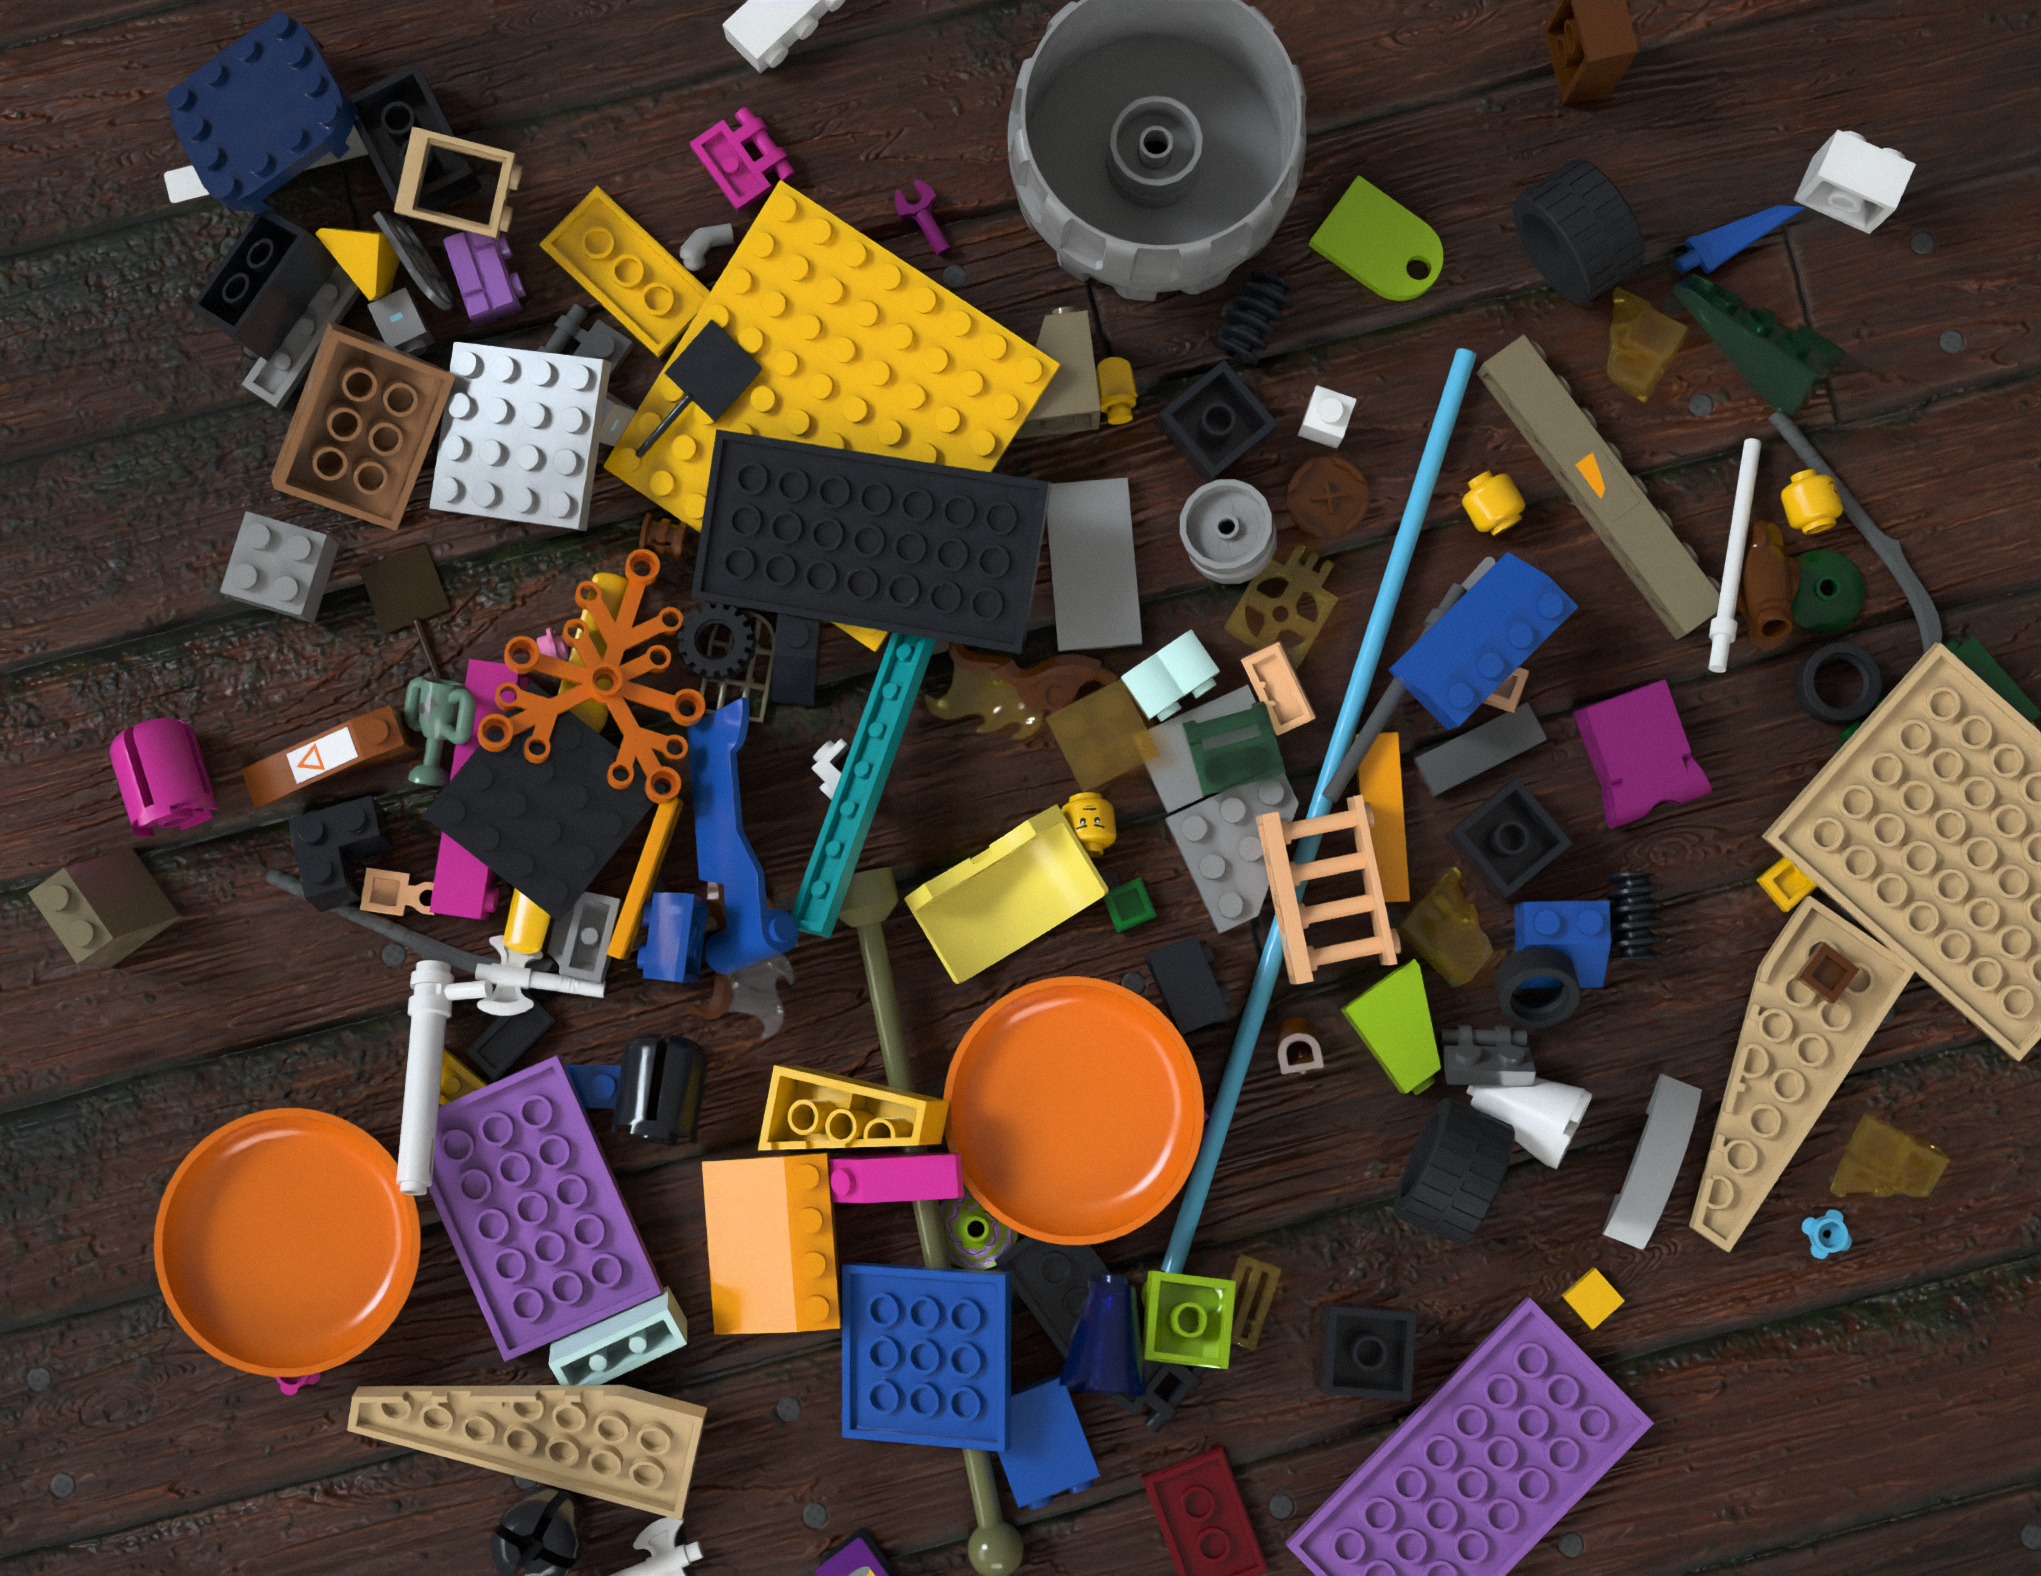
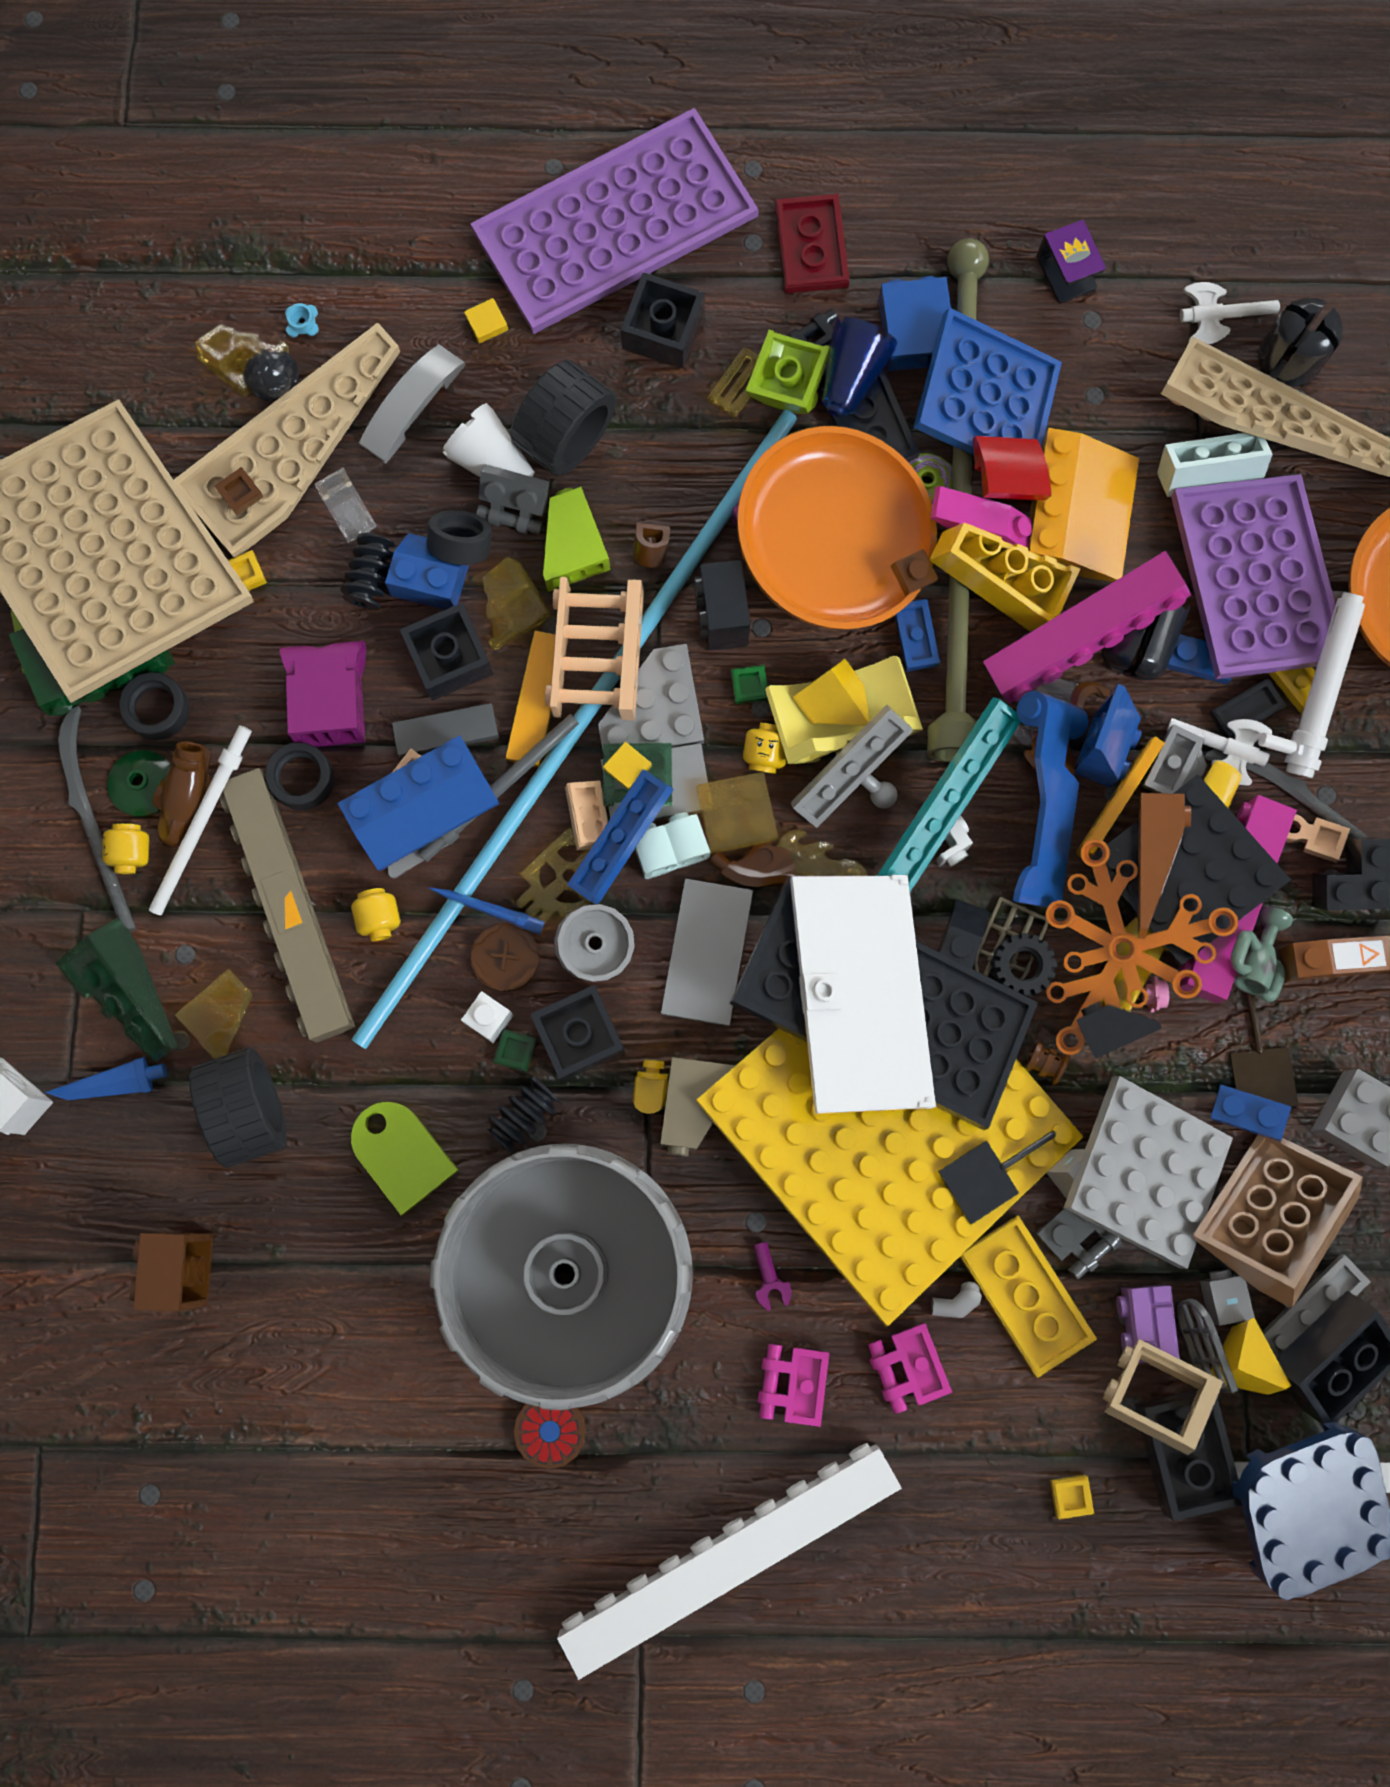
camera: 165 degrees left, 5 degrees down
(414, 541) = (1250, 1113): none -> blue plate
(530, 72) = (1071, 1497): none -> yellow tile
(590, 816) = (1159, 836): none -> dark orange slope
(595, 585) = (1113, 1027): none -> black slope
(733, 1066) = (1088, 627): none -> dark pink brick
(854, 111) = (805, 1385): none -> dark pink plate
(874, 1254) = (1012, 468): none -> red slope
(901, 537) = (861, 994): none -> white door
(937, 1016) = (917, 636): none -> blue plate
(963, 1081) = (914, 572): none -> reddish brown plate
(975, 823) = (854, 767): none -> light grey plate
(1018, 908) = (835, 698): none -> yellow slope
(1232, 662) = (620, 837): none -> blue plate
(1248, 748) = (626, 765): none -> yellow tile
(1284, 392) = (515, 1051): none -> dark green tile
(1334, 540) = (515, 918): none -> blue bar
(1662, 625) = (285, 755): none -> black tyre
(1691, 996) = (345, 505): none -> clear slope
(1838, 1140) = (270, 374): none -> black hair

